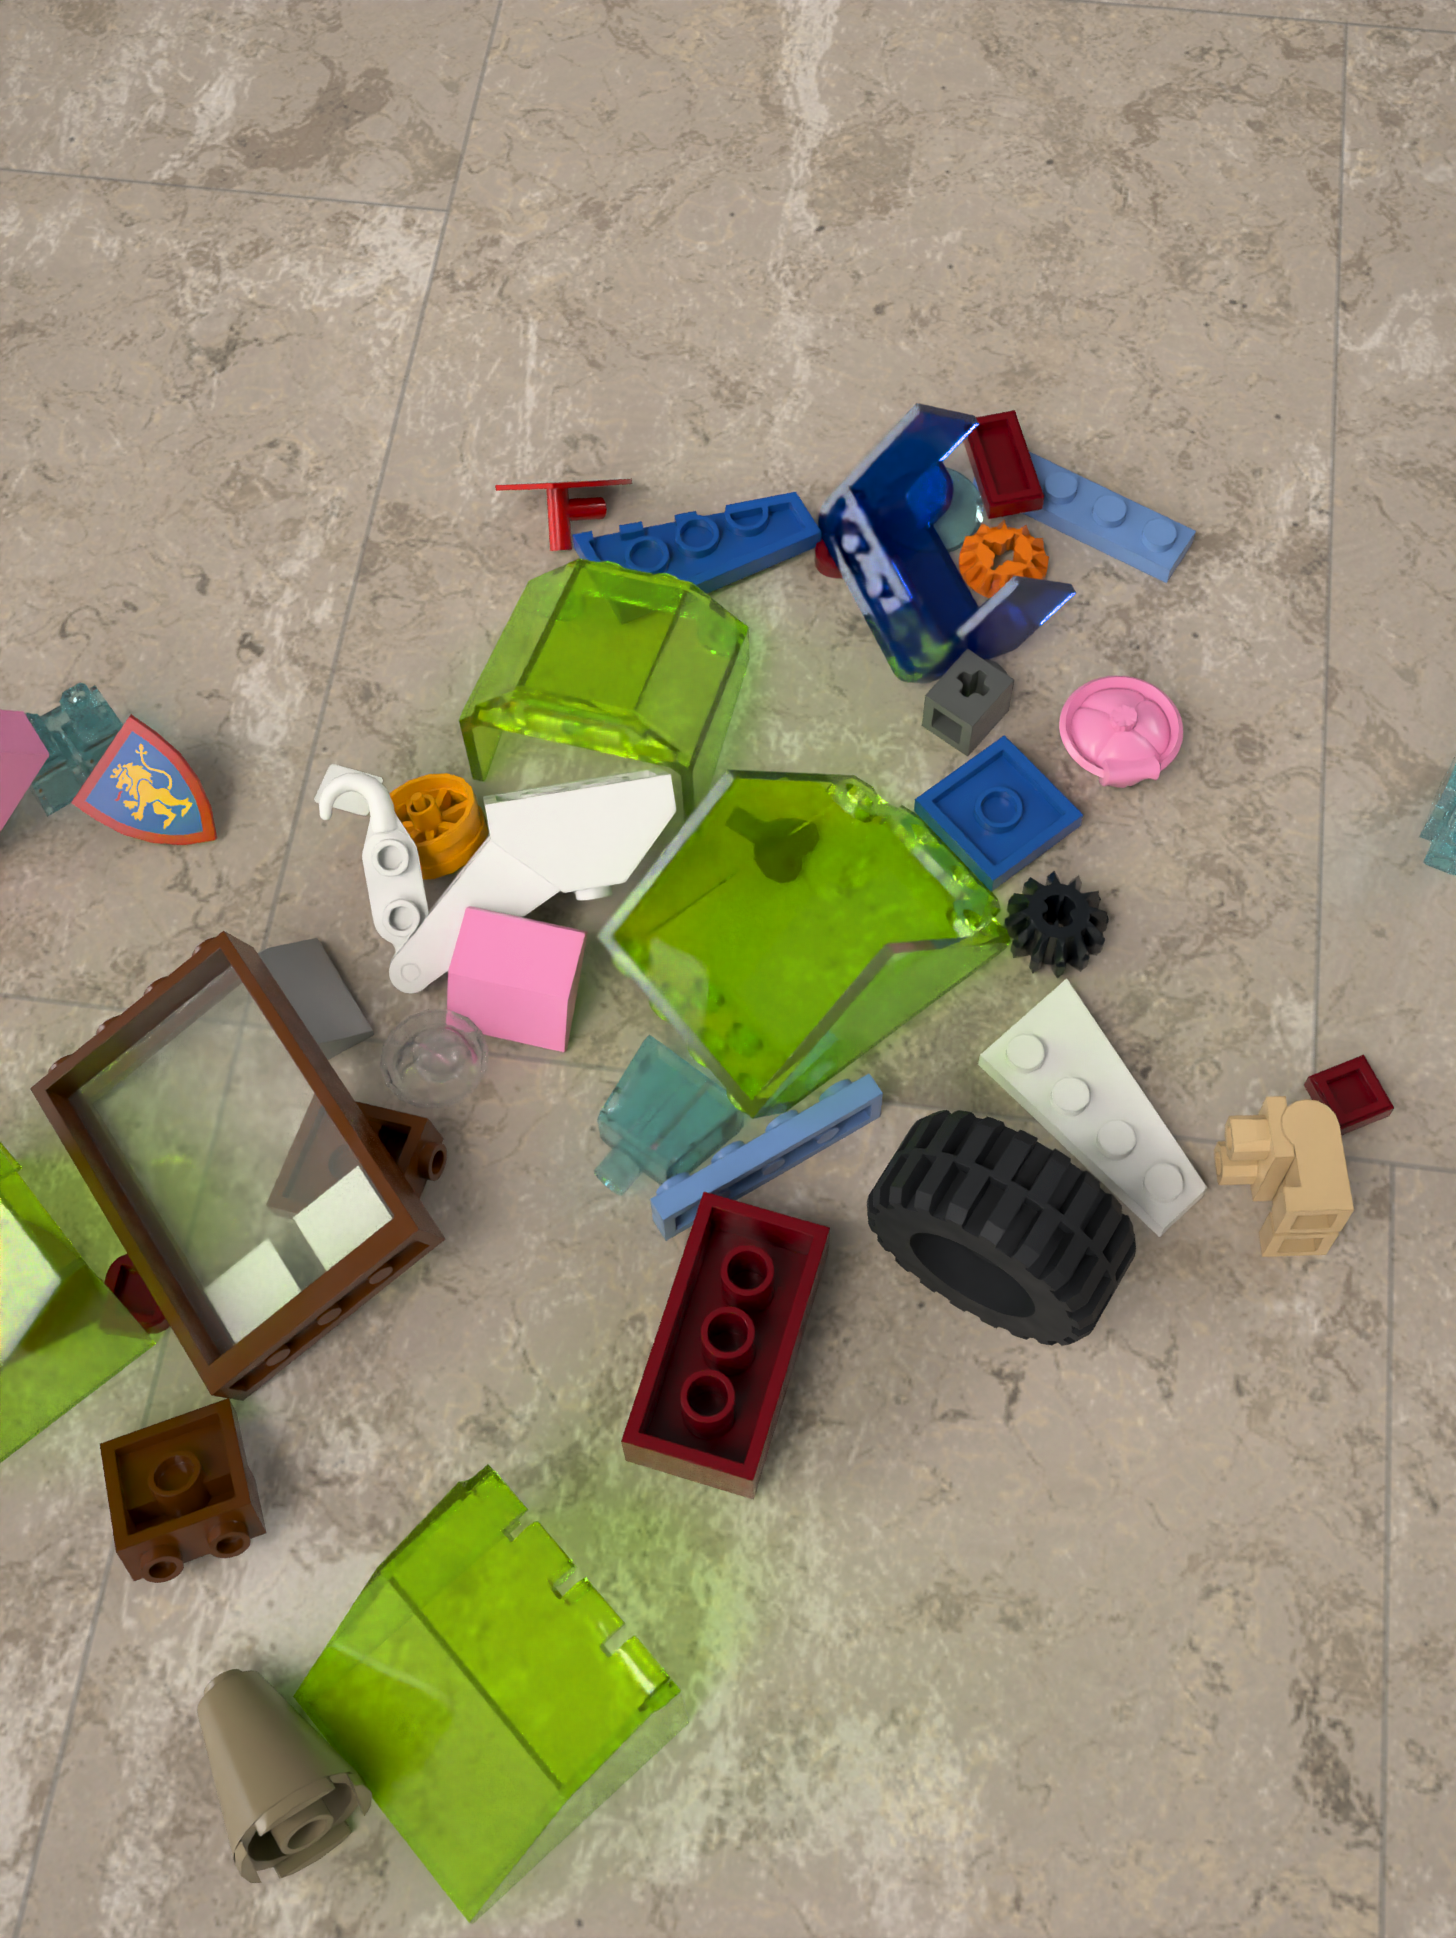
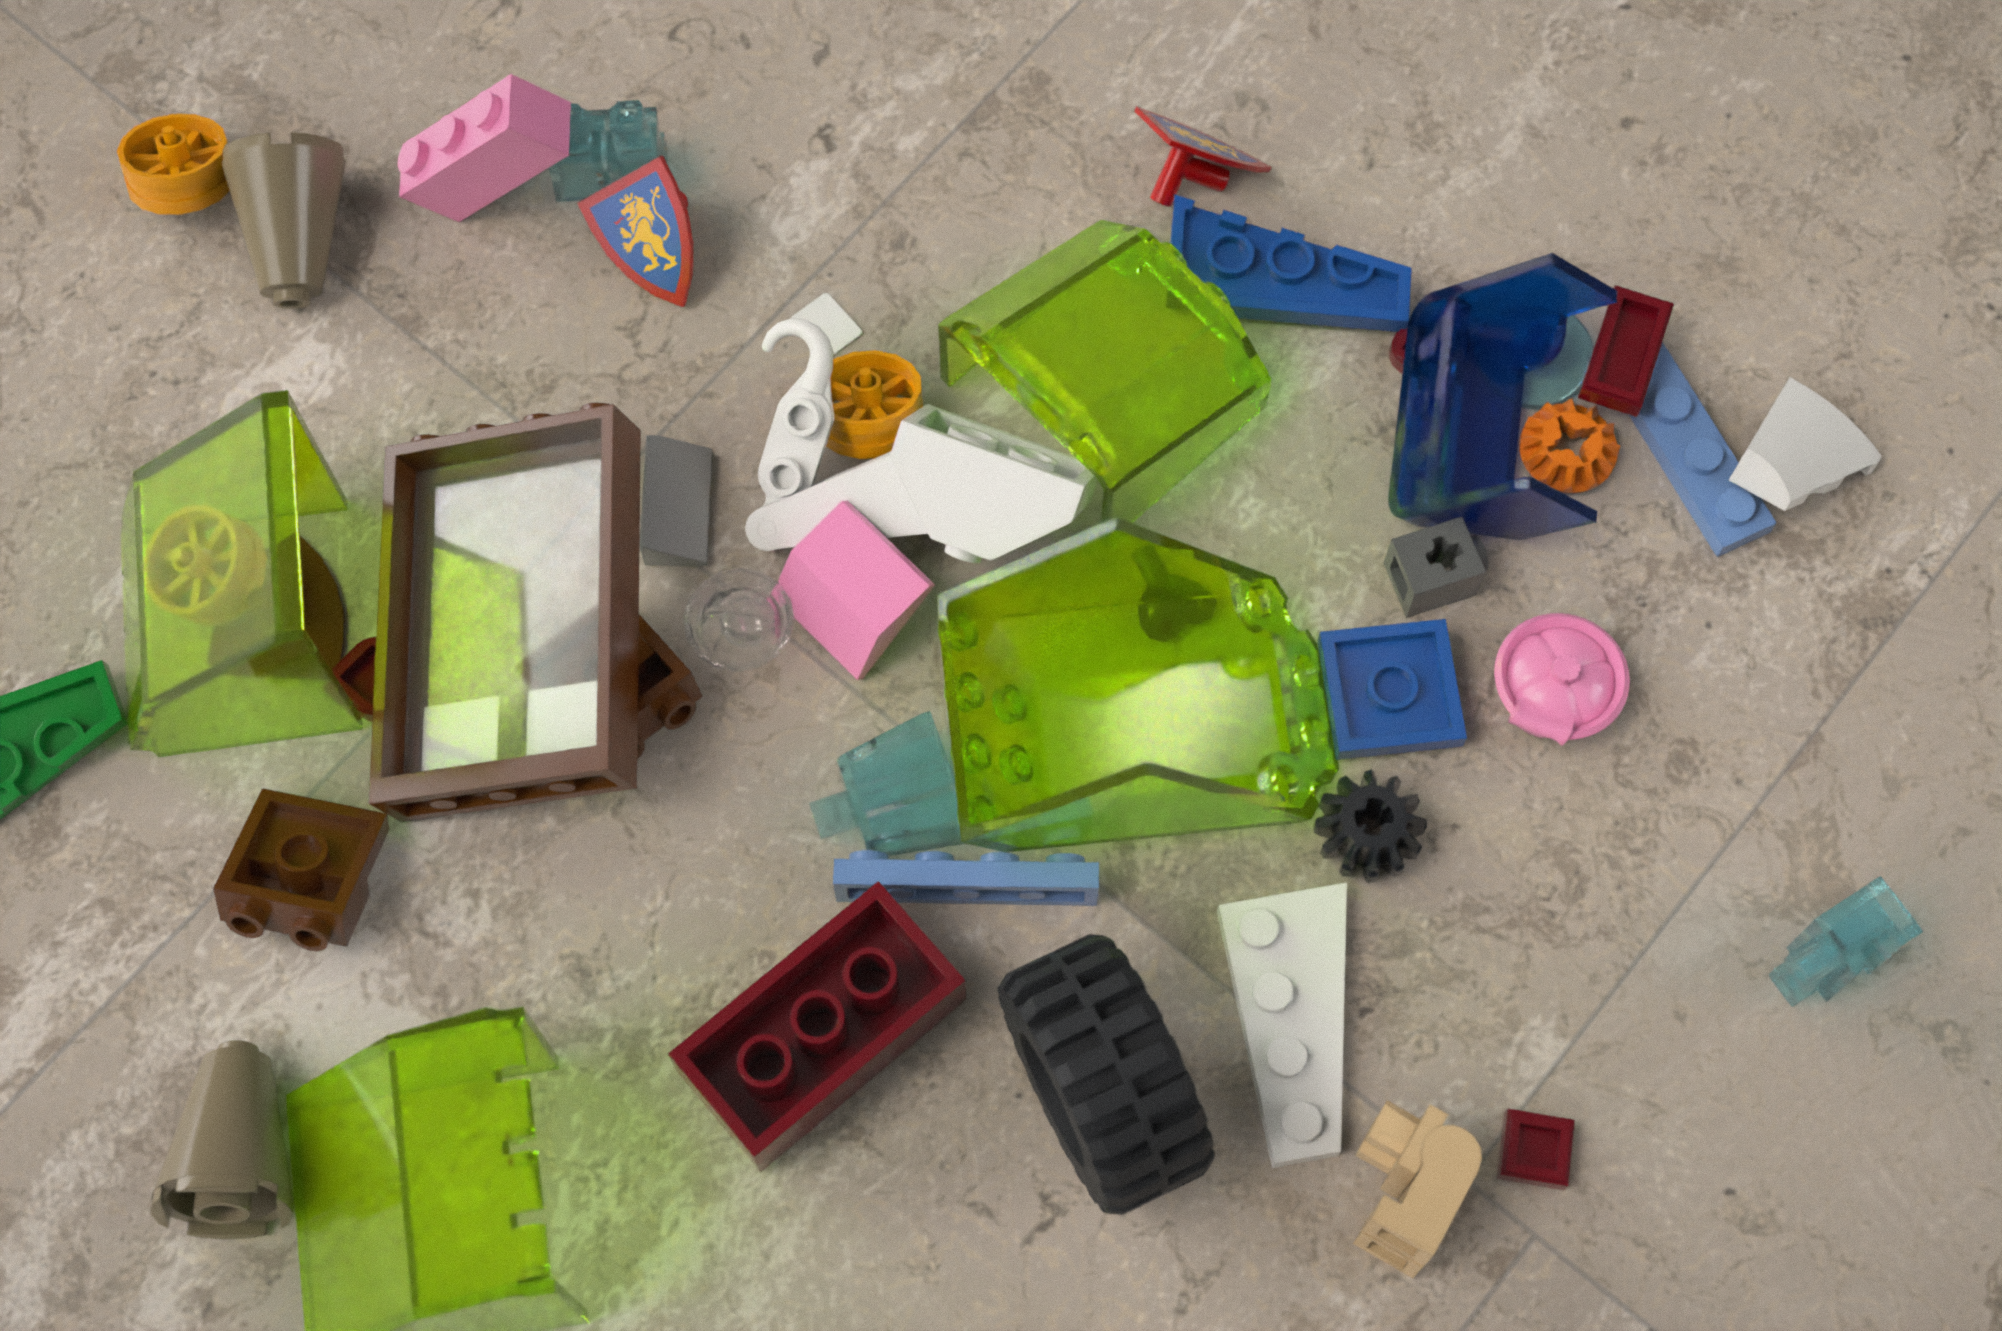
camera: 30 degrees right, 5 degrees up
(1177, 467) = (1802, 449): none -> white slope

